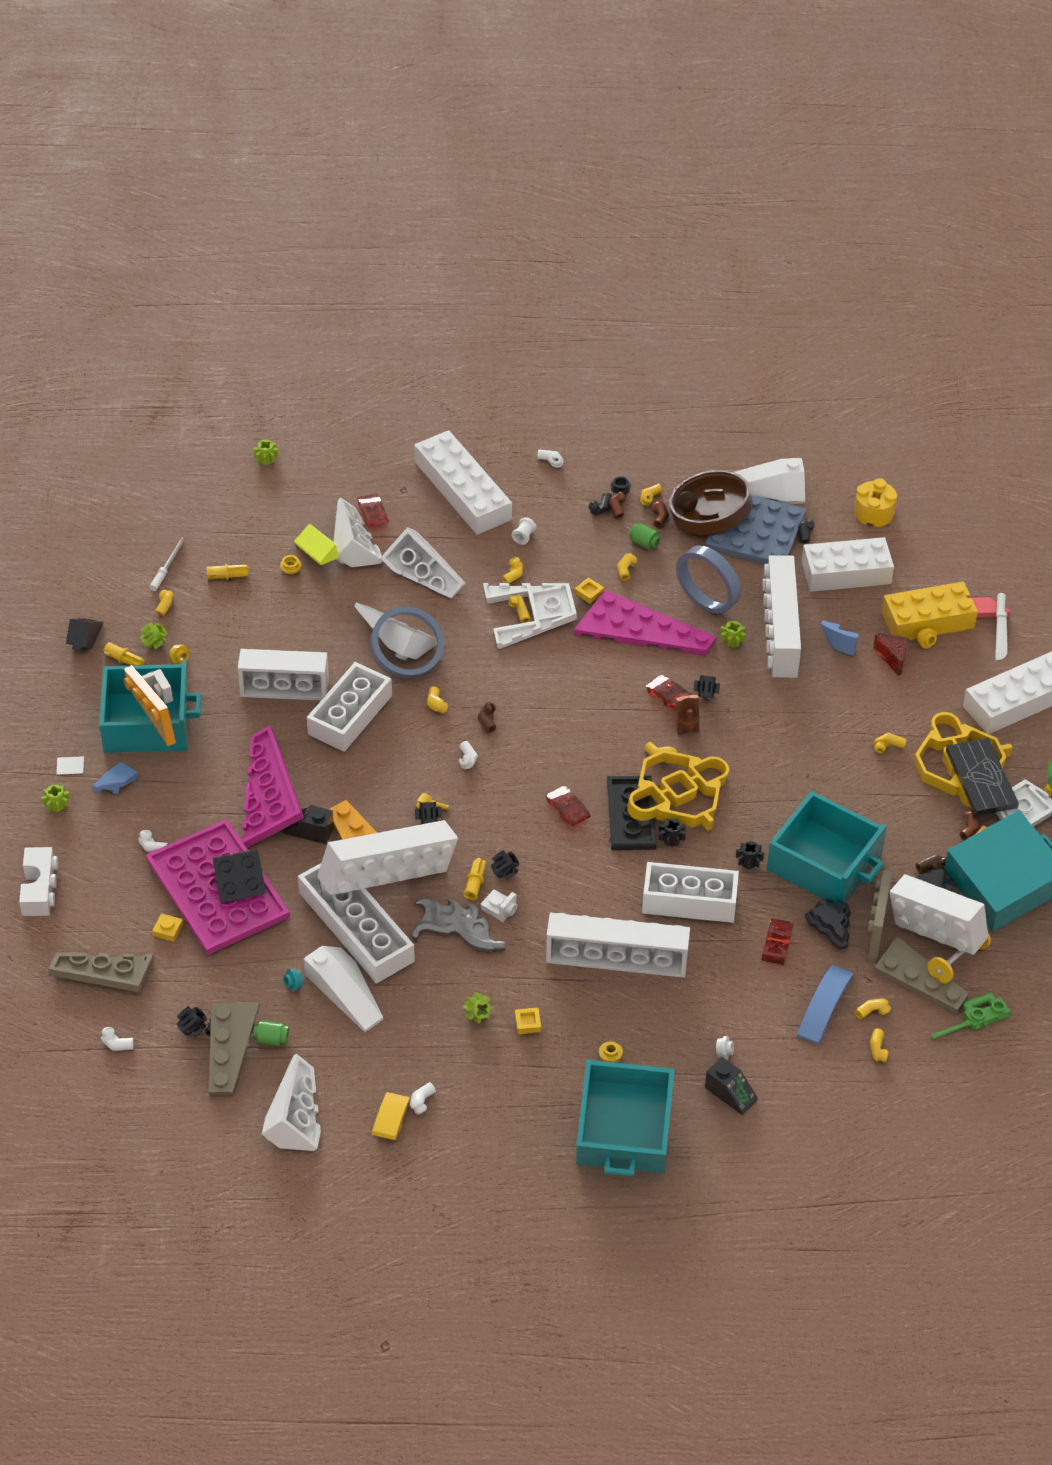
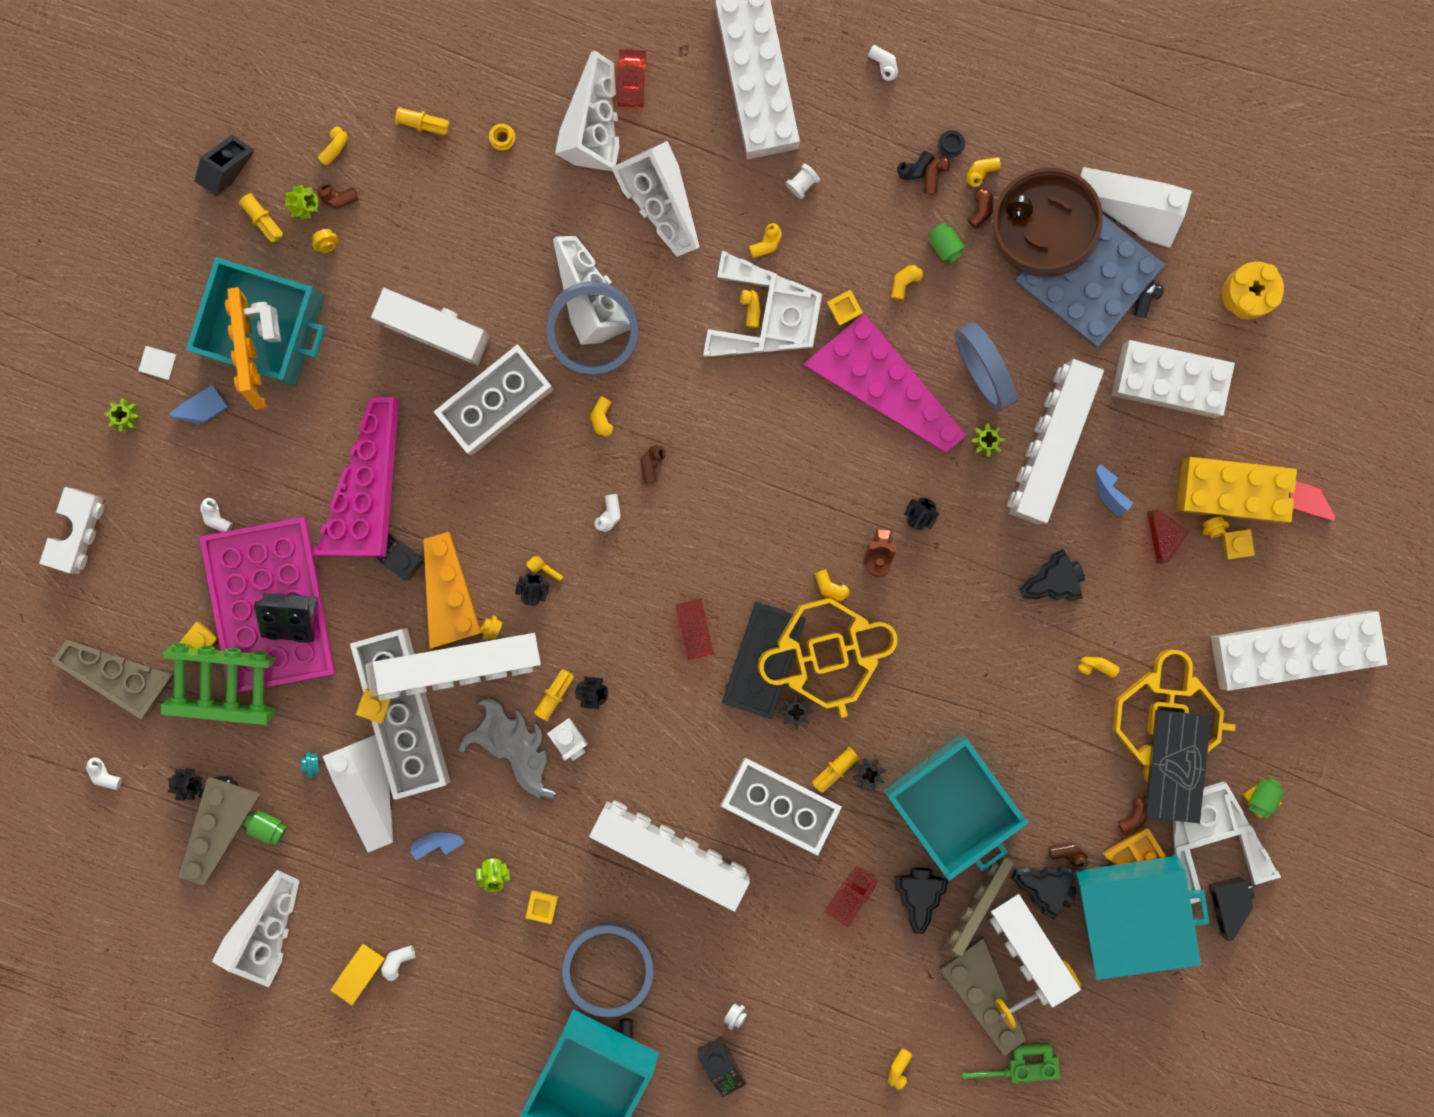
camera: 20 degrees right, 40 degrees up
(163, 570) = (345, 94): white piece -> none
(178, 631) = (335, 198): none -> copper arm
(192, 963) = (205, 706): none -> bright green fence
(317, 545) = (538, 124): neon yellow slope -> none
(334, 907) = (372, 708): none -> yellow plate
(423, 997) = (428, 843): none -> medium blue slope
(593, 1018) = (612, 928): none -> sand blue piece
(610, 1056) = (614, 968): yellow plate -> none
(666, 689) = (876, 502): clear red slope -> none
(724, 860) = (835, 770): none -> yellow axle
(823, 1004) = (869, 994): medium blue slope -> none
(829, 699) = (1056, 579): none -> black rock
(872, 1005) = (918, 1017): yellow arm -> none
(950, 646) = (1238, 544): none -> yellow plate
(1001, 629) = (1307, 549): white piece -> none

